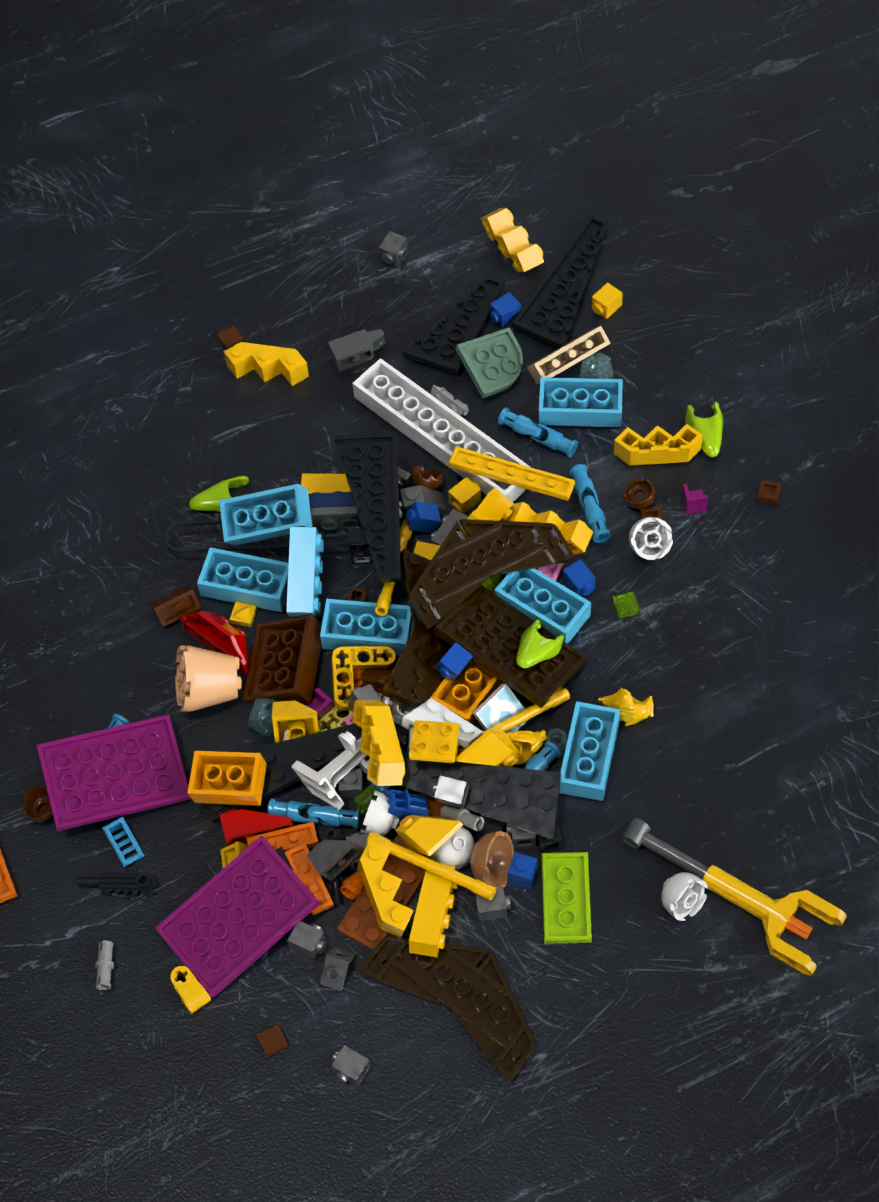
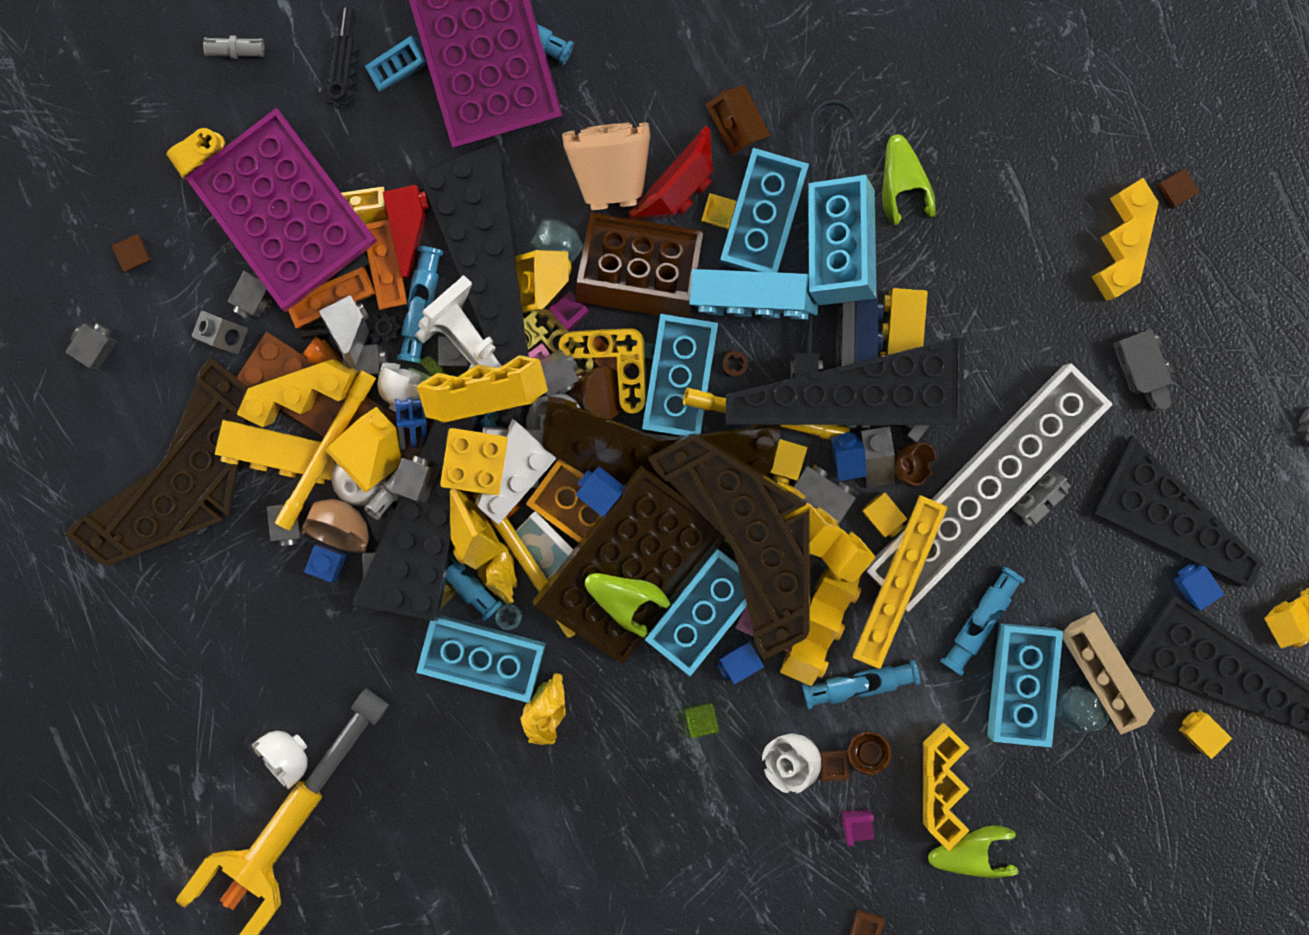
camera: 90 degrees right, 30 degrees up
(227, 778) = (456, 193): light orange brick -> none
(492, 361) = (1106, 564): sand green plate -> none
(566, 898) = (295, 614): lime tile -> none

